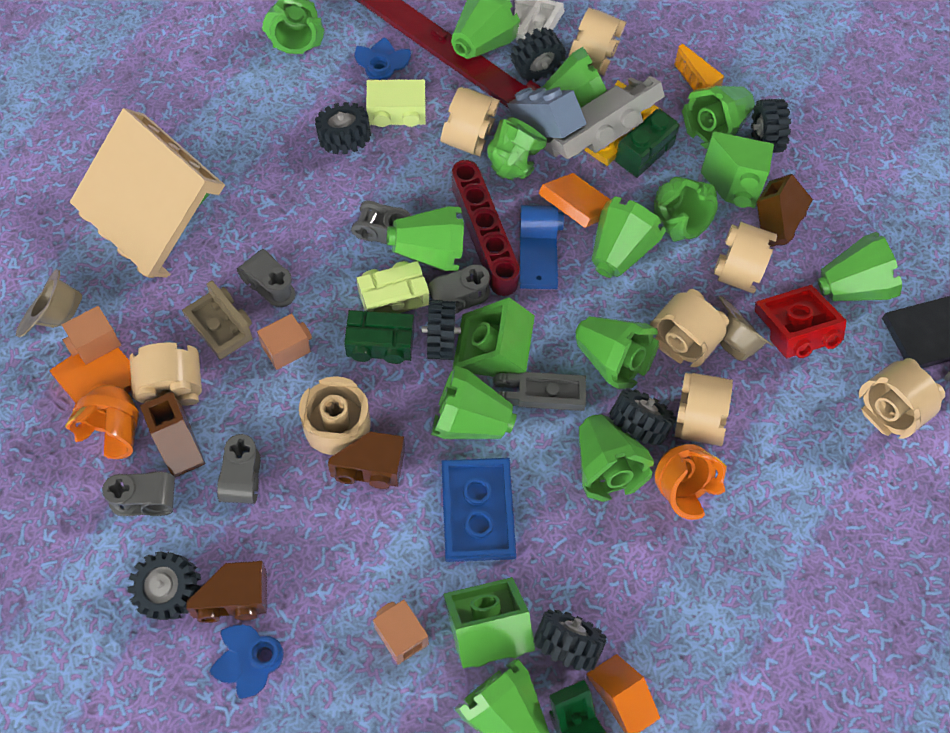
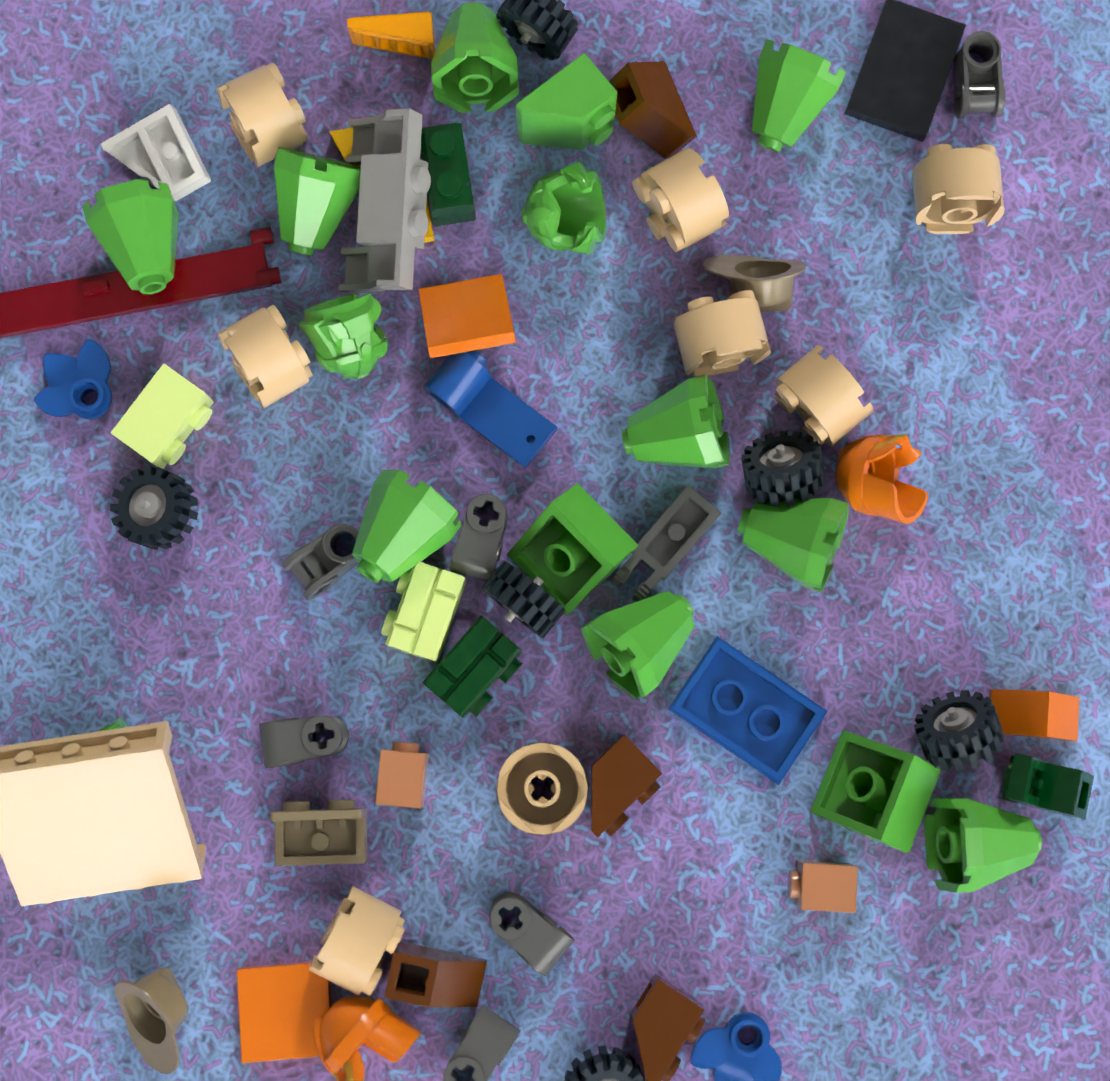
camera: 50 degrees left, 20 degrees up
(90, 335) = (239, 994): nougat brick -> none
(468, 189) = (403, 433): dark red beam -> none
(538, 54) = (229, 199): black wheel -> none
(550, 112) = (335, 265): sand blue brick -> none
(624, 236) = (557, 311): bright green cone -> none
(801, 321) = (793, 206): red plate -> none

